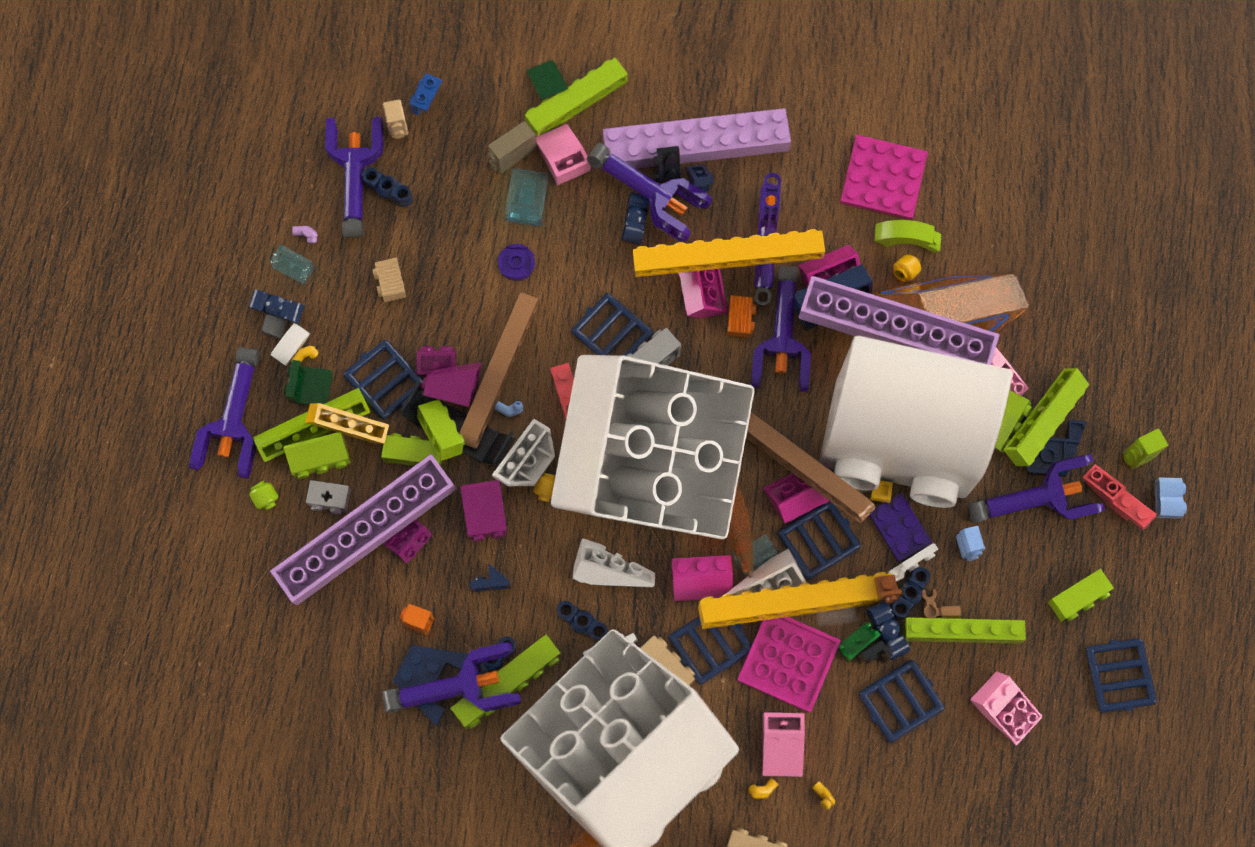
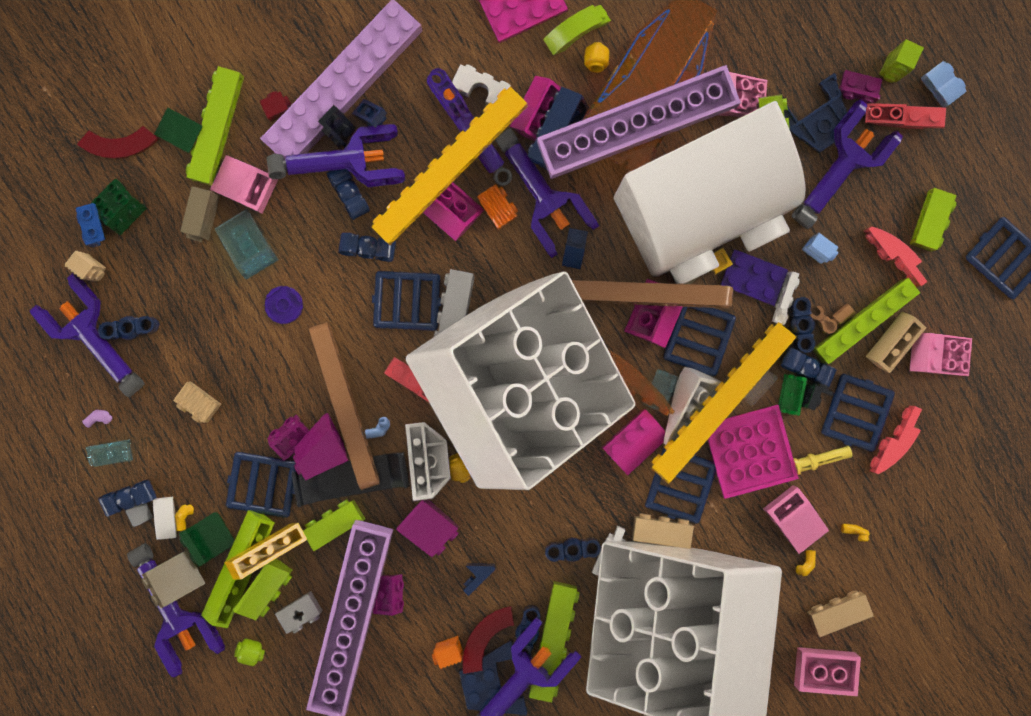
camera: 30 degrees left, 15 degrees up
(257, 391) = (172, 579): none -> dark tan brick
(440, 429) = (341, 493): lime brick -> none
(452, 631) = (482, 635): none -> dark red tile
(455, 98) = (118, 207): none -> dark green bracket
(492, 59) = (120, 147): none -> dark red tile
(600, 567) = (559, 492): white wedge -> none
(615, 268) = (366, 247): none -> dark blue piece
(633, 116) = (275, 105): none -> dark red brick
(774, 395) = (574, 248): none -> dark blue slope
(794, 209) = (468, 79): none -> white arch
(832, 709) = (813, 461): none -> light yellow pin
(887, 588) = (786, 339): dark orange bracket -> none
(908, 751) = (895, 448): none -> coral slope
(976, 665) = (896, 342): none -> tan brick
(1030, 590) = (893, 248): none -> coral slope
(1046, 417) = (803, 95): lime brick -> none
(1100, 447) = (860, 86): none -> magenta bracket

